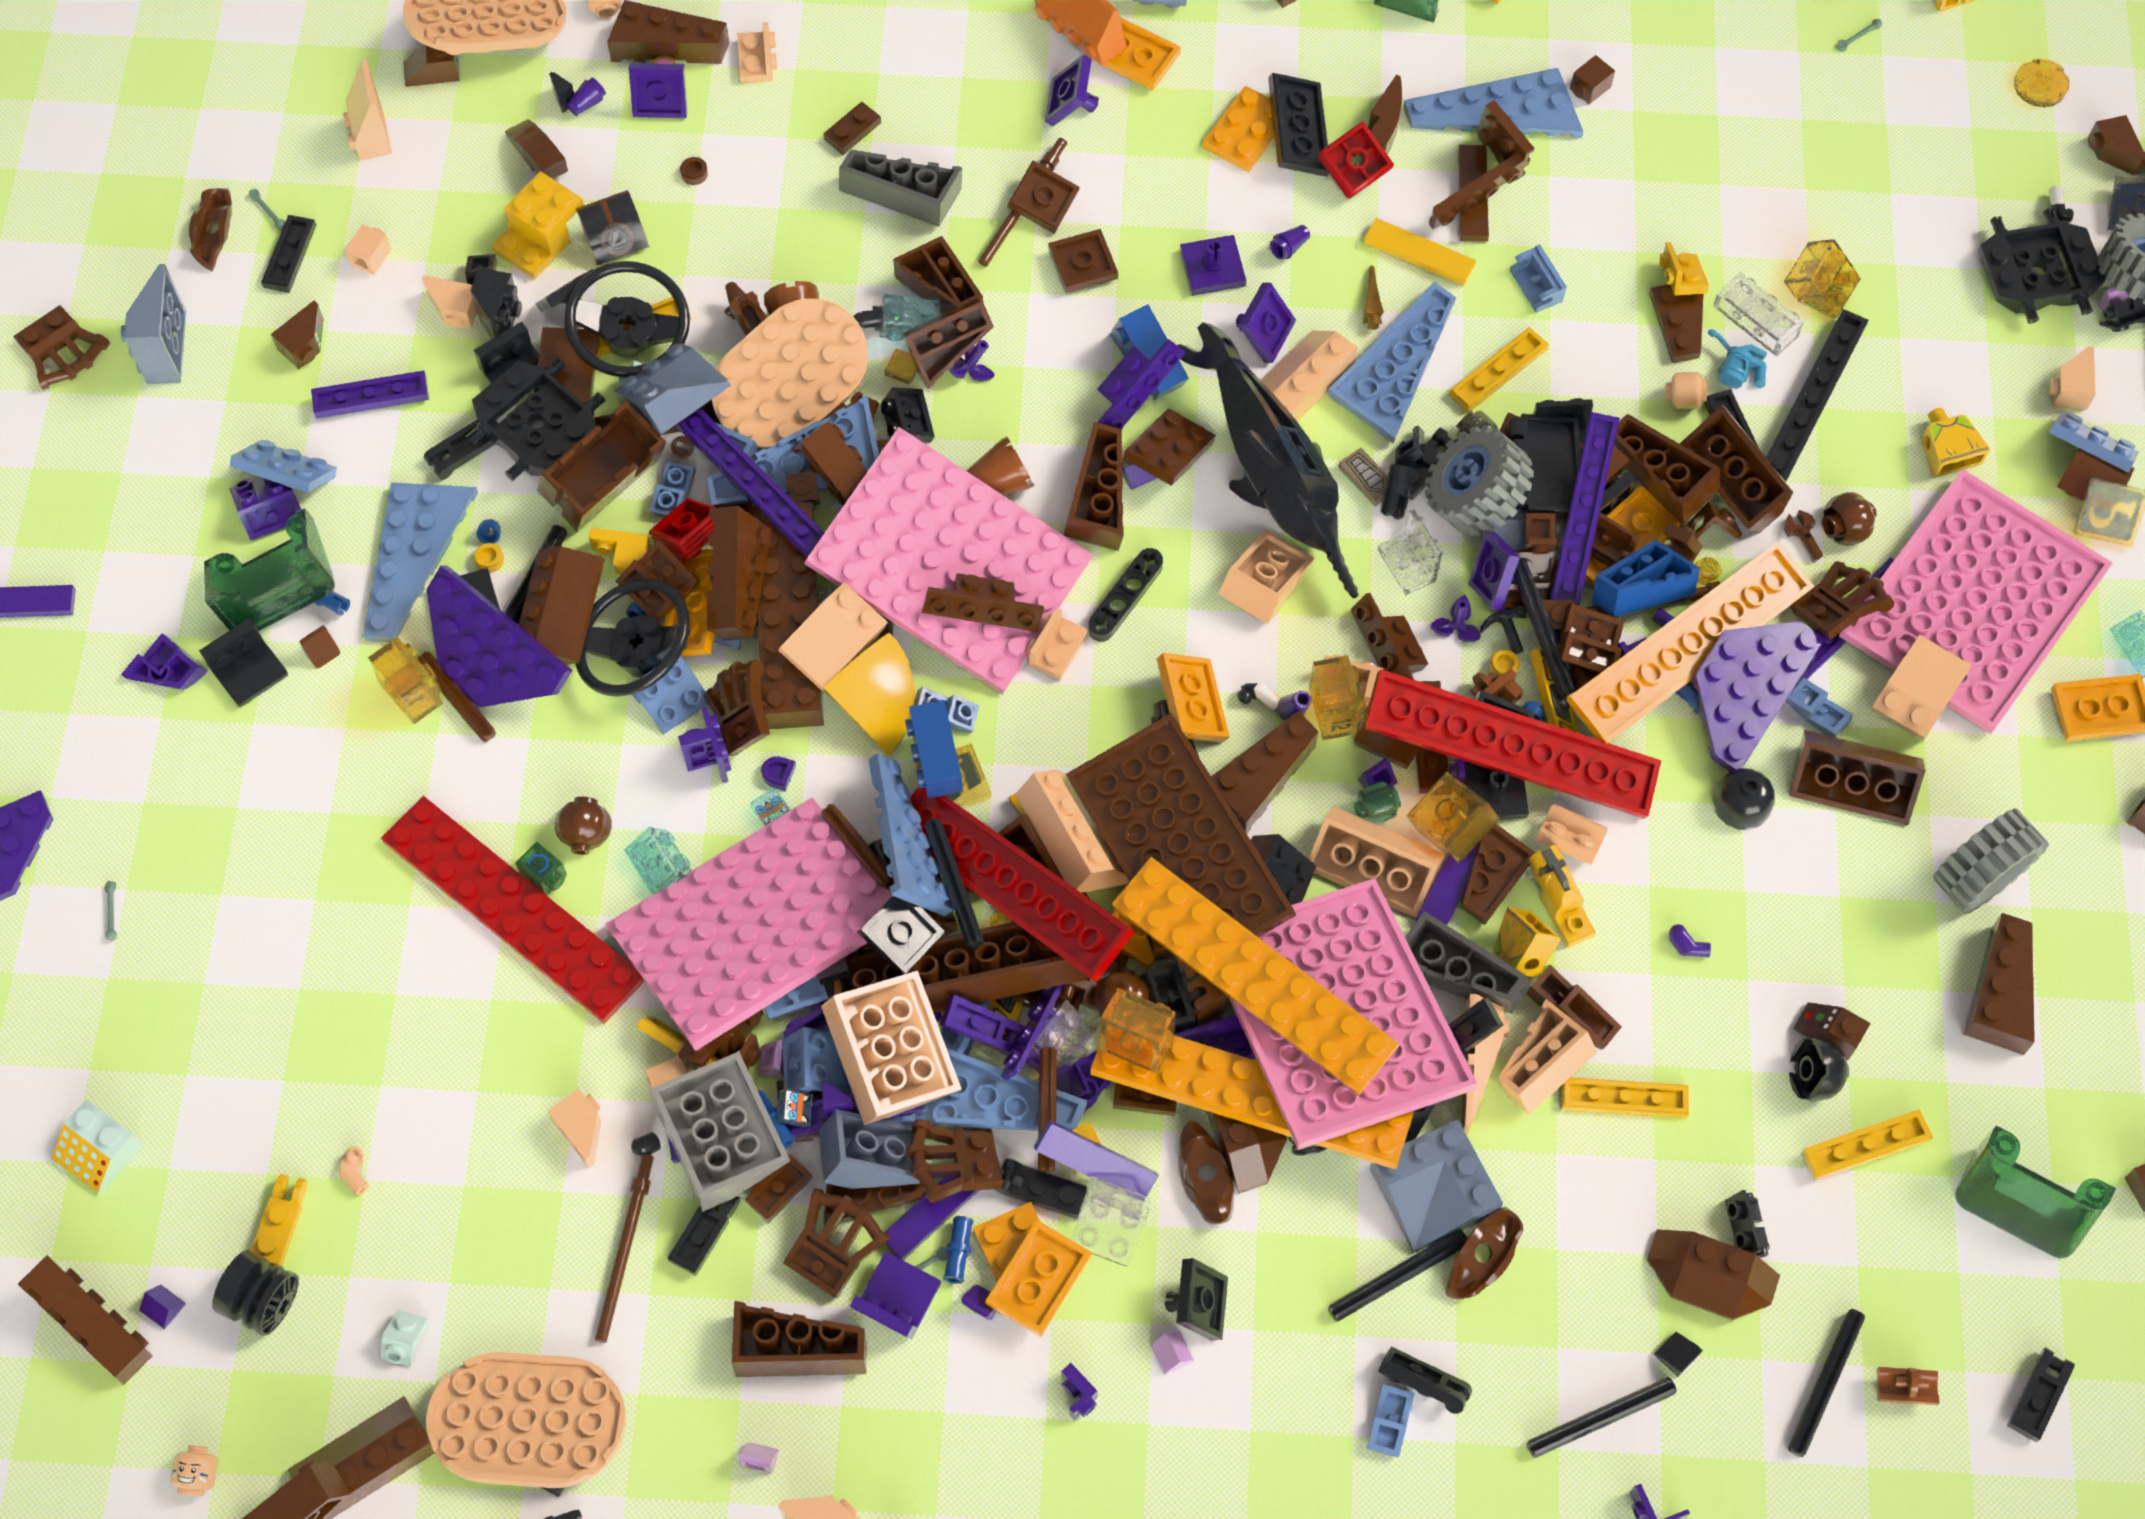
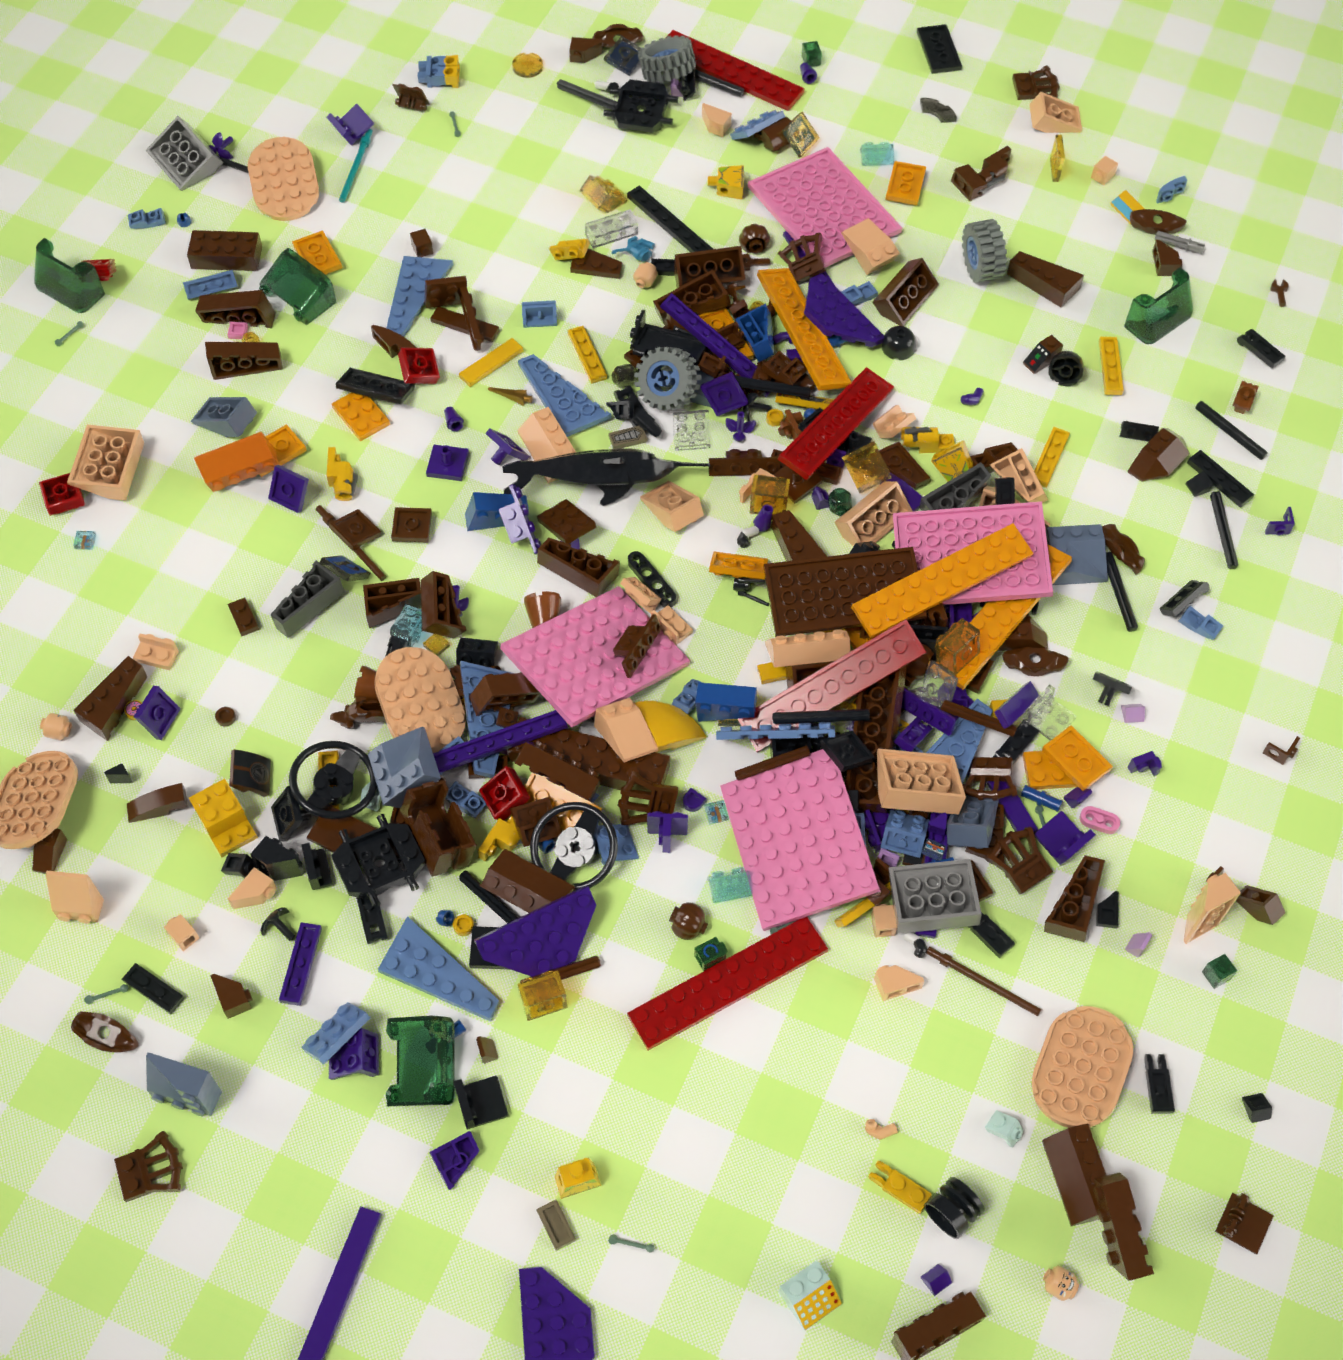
camera: 70 degrees left, 5 degrees down
(111, 814) = (556, 1225): none -> dark tan tile
(168, 809) = (576, 1177): none -> yellow torso
(418, 340) = (274, 919): none -> black plant
(586, 96) = (131, 761): dark purple cone -> none
(800, 1400) = (1108, 912): none -> black tile
(952, 1347) = (1099, 819): none -> bright pink plate
(969, 207) = (344, 568): none -> clear smoke tile
(1085, 583) = (640, 593): none -> light nougat bracket
(1125, 142) = (340, 476): none -> yellow plate
(1707, 1386) = (1221, 478): none -> black plate
(2017, 183) = (588, 95): none -> black axle

